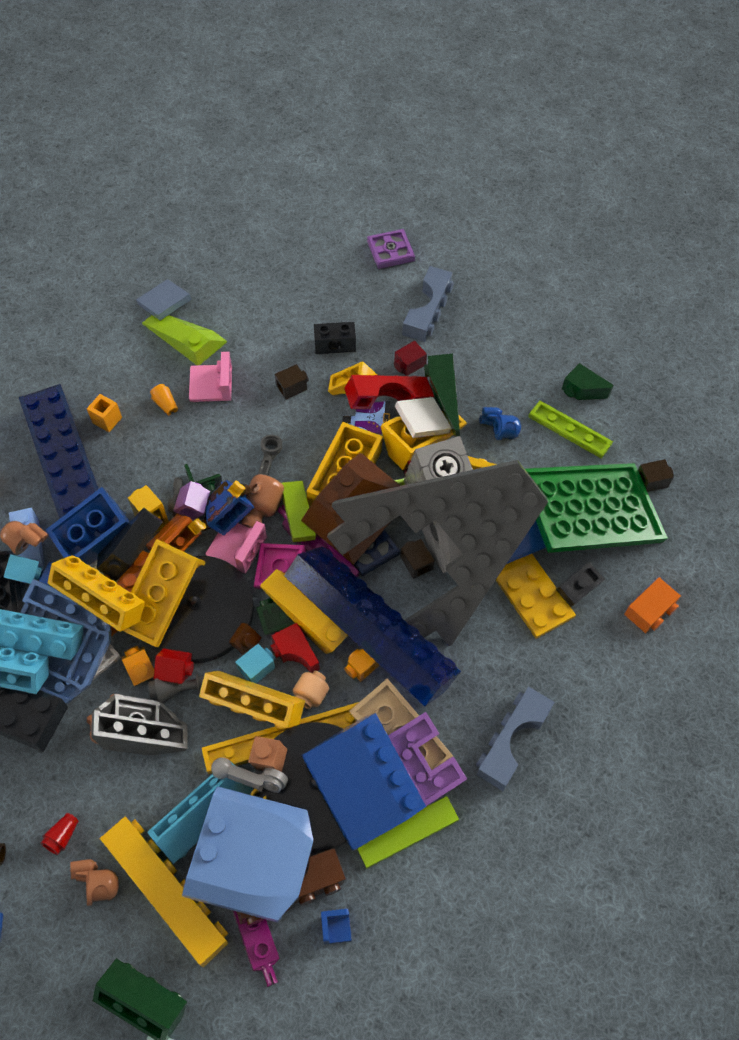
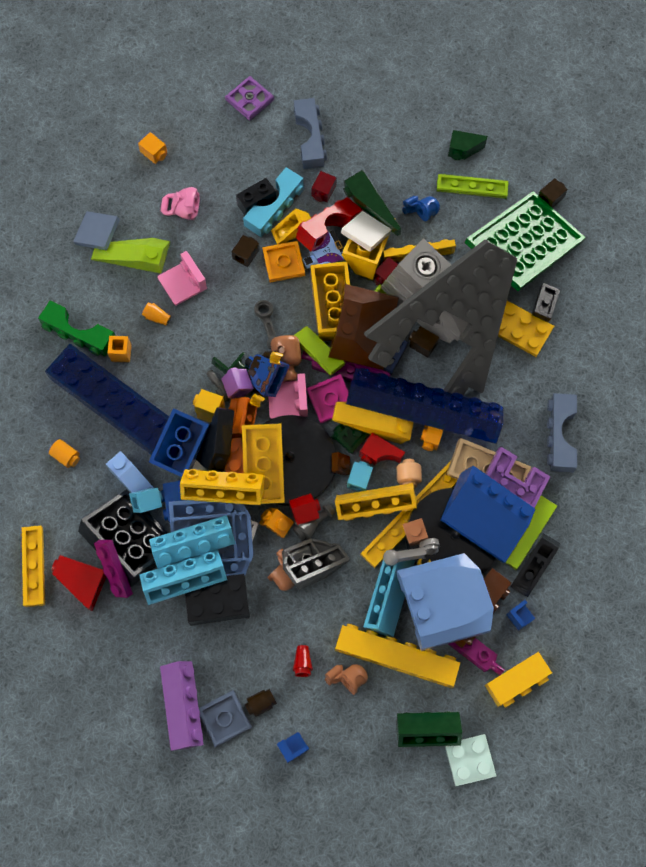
camera: 30 degrees left, 10 degrees up
(19, 536) = (130, 476): nougat piece -> none
(70, 360) = (56, 318): none -> green arch
(261, 312) = (184, 203): none -> bright pink piece
(267, 251) = (153, 148): none -> light orange brick
(283, 1006) = (518, 680): none -> yellow brick
(322, 410) = (283, 261): none -> light orange plate
(328, 359) = (261, 218): none -> medium azure arch
(391, 874) = (535, 564): none -> black slope
(652, 605) = (601, 292): orange brick -> none

